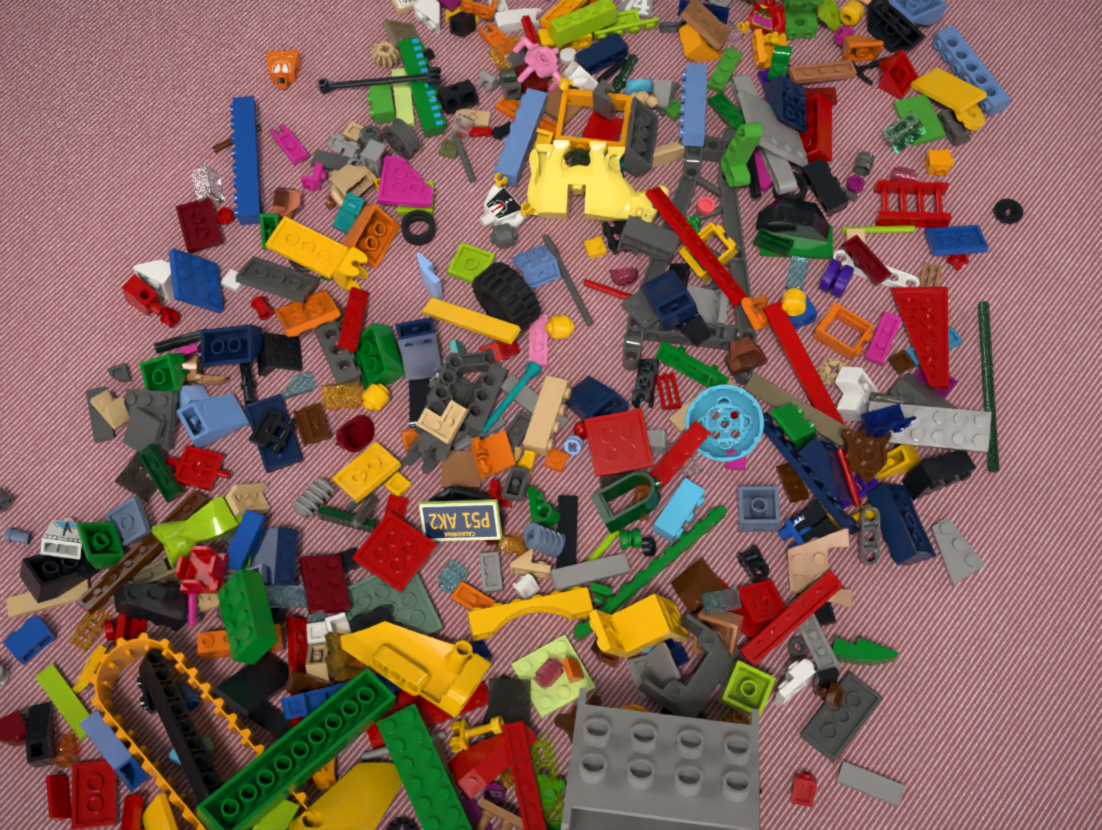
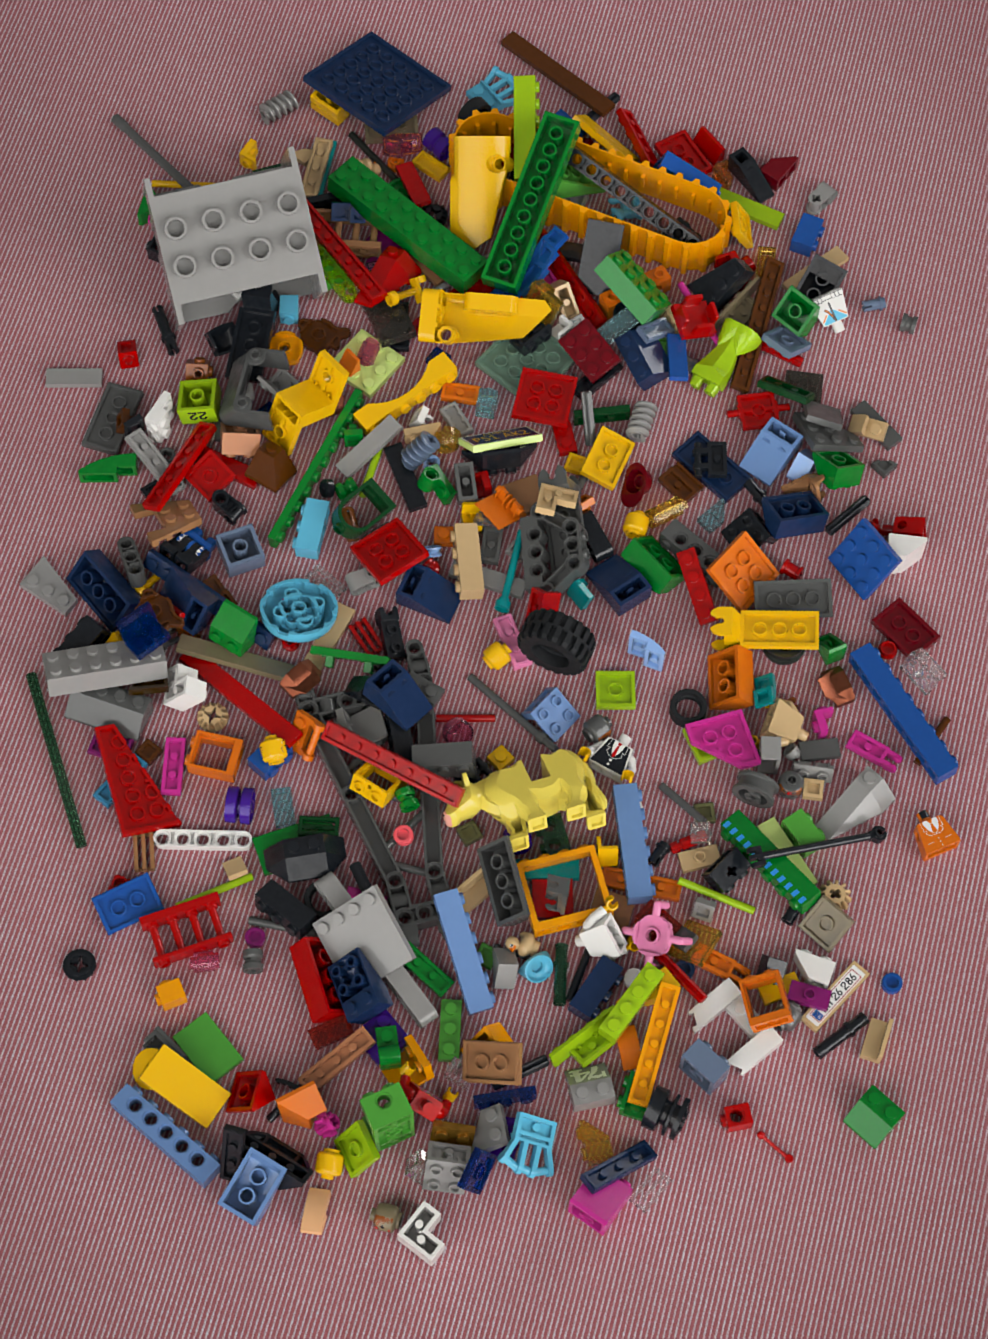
camera: 155 degrees right, 0 degrees up
(189, 351) = (833, 502): dark pink tile -> none
(229, 281) = (839, 589): white tile -> none
(247, 497) = (694, 393): tan bracket -> none
(302, 683) = (559, 274): reddish brown slope -> none
(326, 113) = (861, 801): none -> light grey wedge
(471, 320) = (597, 623): yellow tile -> none
(479, 89) = (716, 895): none -> lime bar
(509, 82) = (678, 907): dark grey leg -> none
(680, 454) = (330, 571): red plate -> none
(721, 600) = (244, 455): clear light blue plate -> none
(739, 152) = (385, 877): bright green beam -> none
(866, 260) = (215, 836): dark red plate -> none
(904, 132) = (219, 1007): clear green brick -> none
(925, 29) = (232, 1150): none -> black tile

